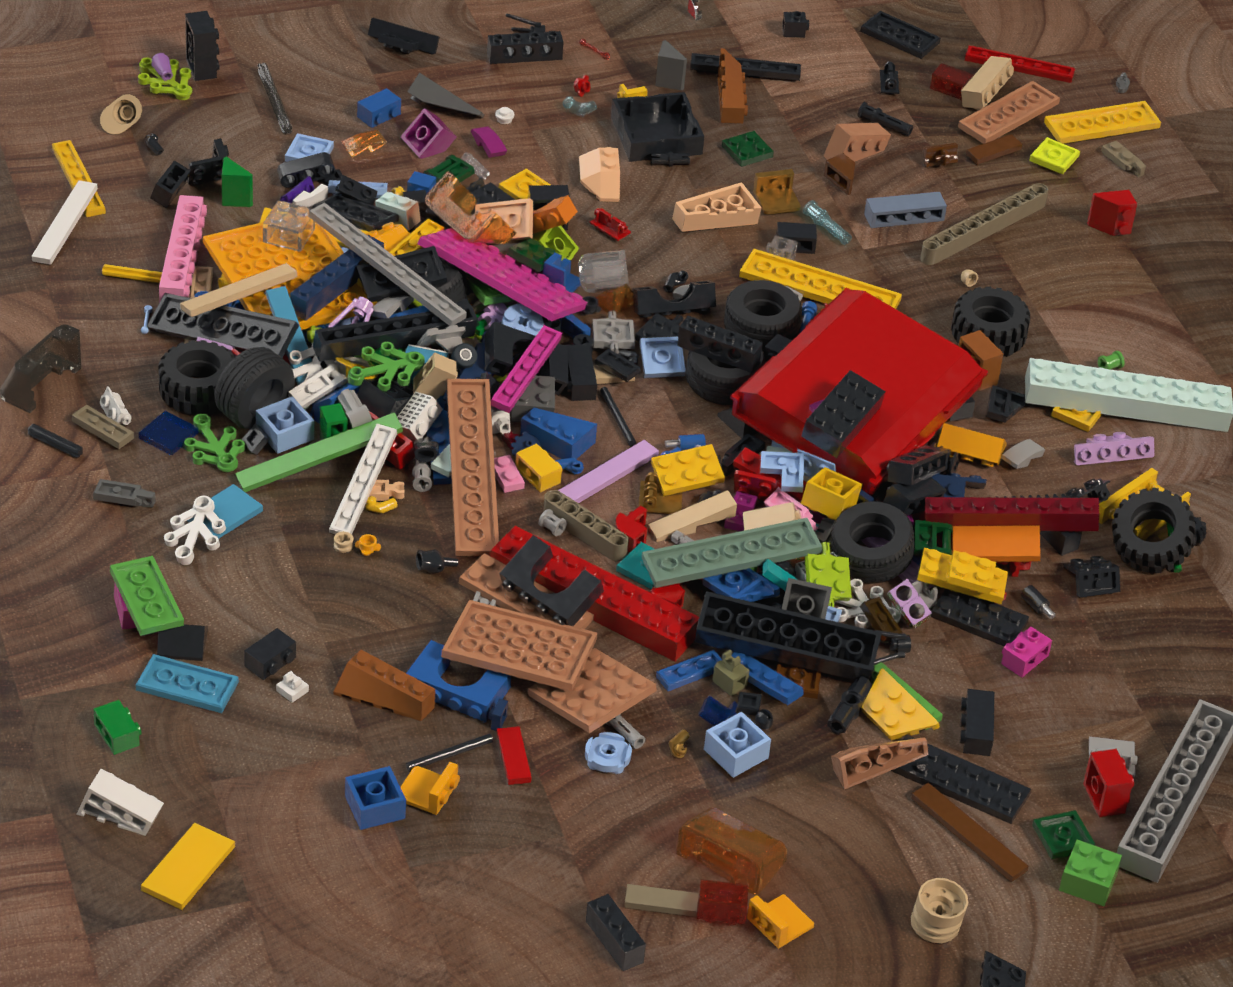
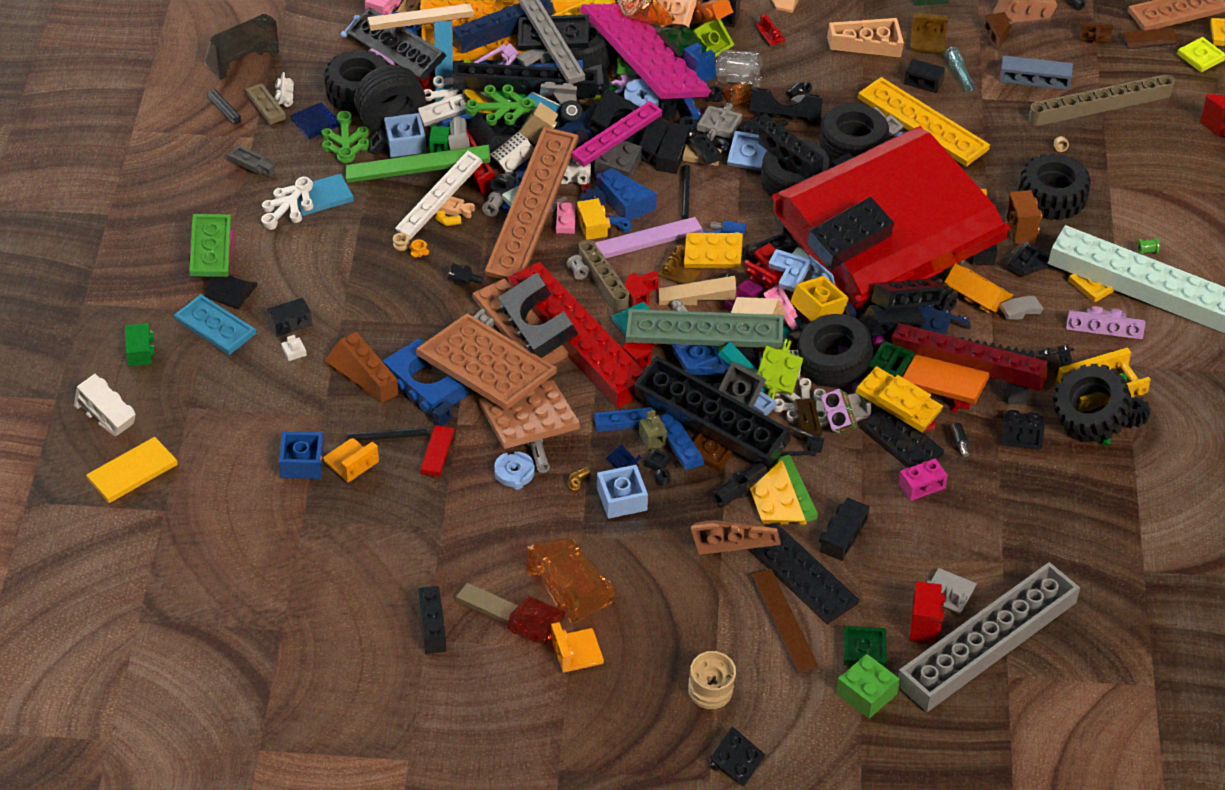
camera: 25 degrees right, 5 degrees up
(782, 247) = (906, 82): clear brick -> none

